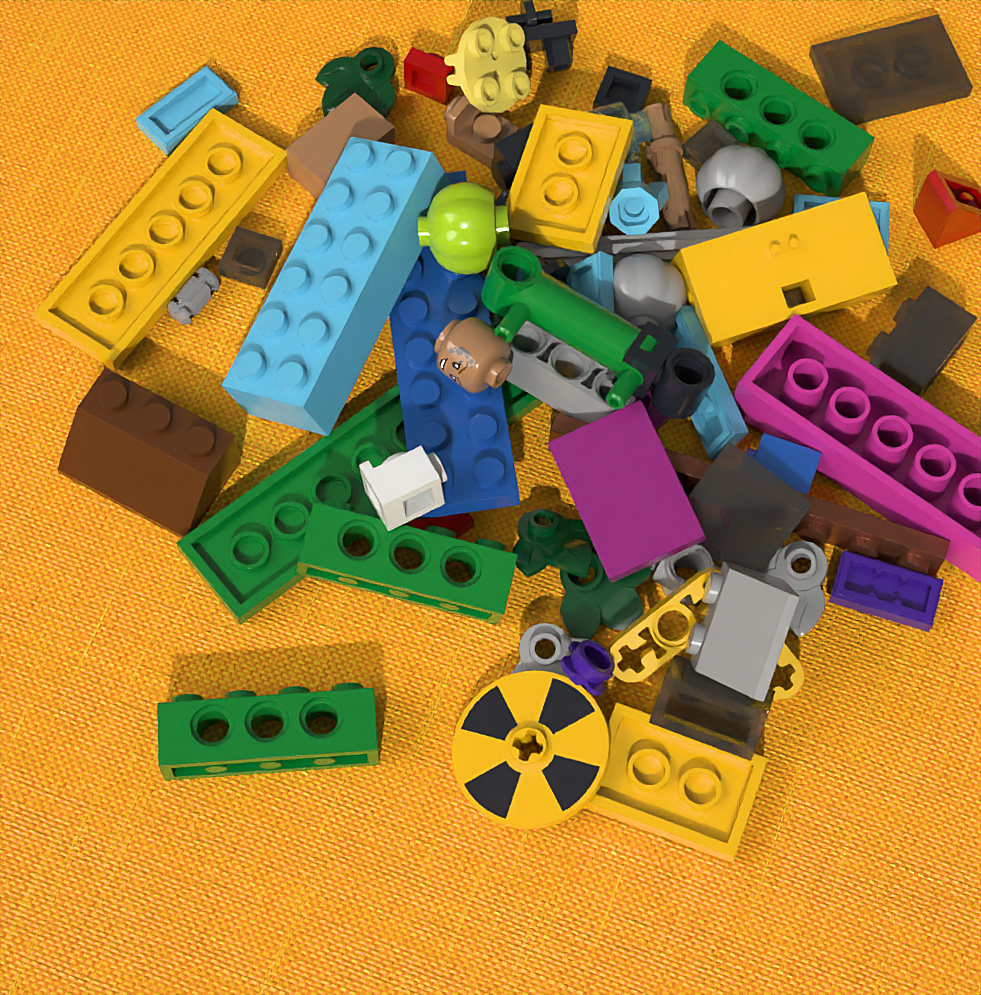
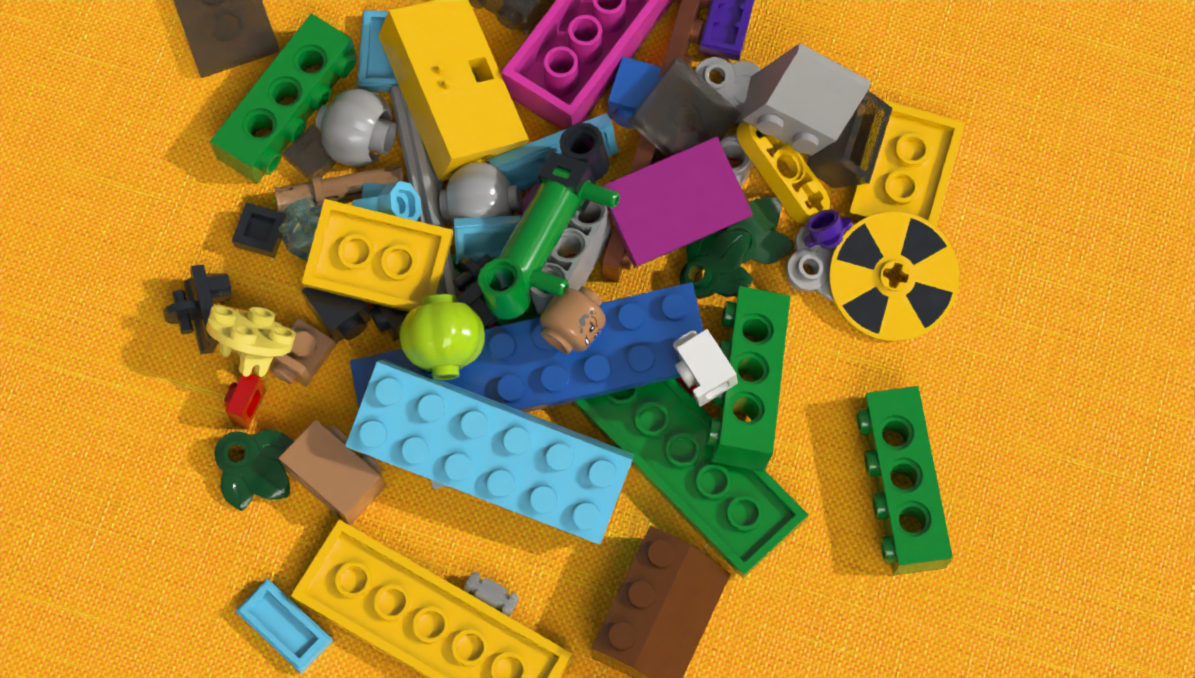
camera: 90 degrees left, 5 degrees up
(250, 257) = (450, 545): clear smoke plate -> none

